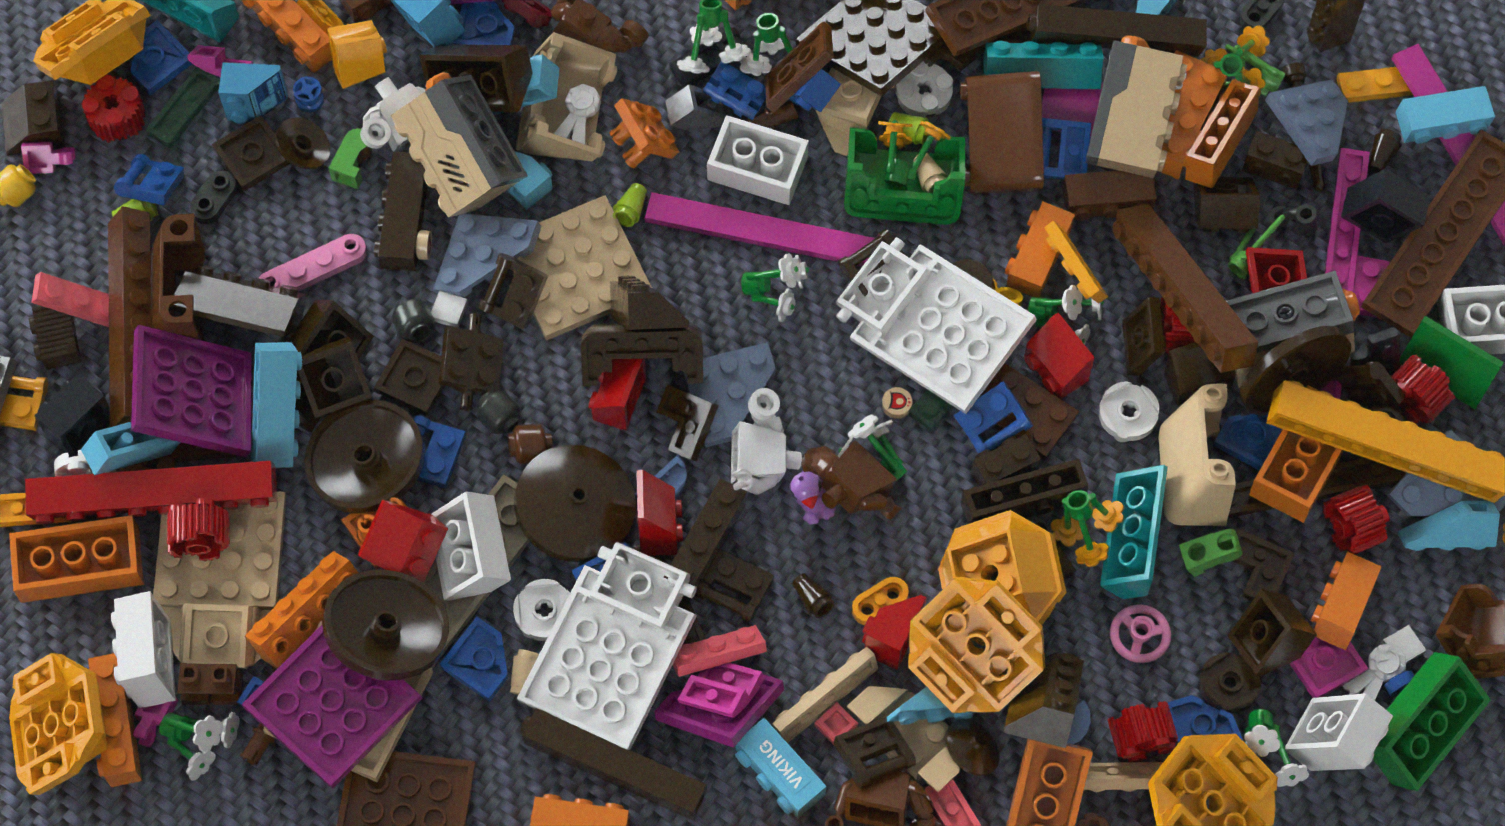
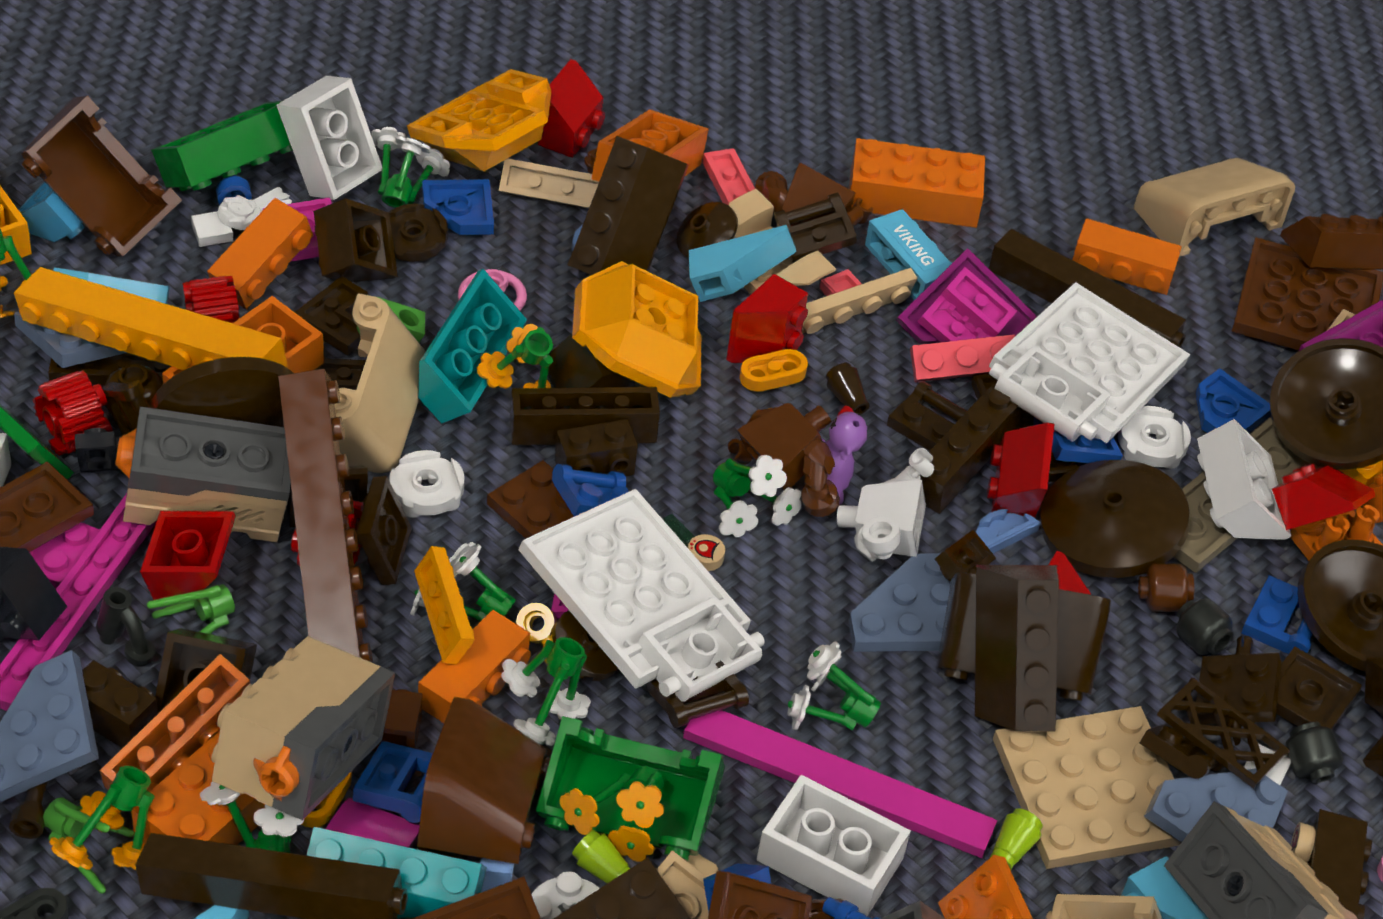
camera: 175 degrees left, 20 degrees down
(482, 284) = (1227, 756): none -> dark brown window
(521, 669) = (1177, 390): tan cone -> none
(928, 173) = (594, 775): tan cone -> none
(956, 669) = (693, 254): light orange piece -> none
(977, 228) = (563, 660): none -> plant
(1059, 357) = (498, 531): red slope -> none
(1143, 731) = (526, 196): red brick -> none

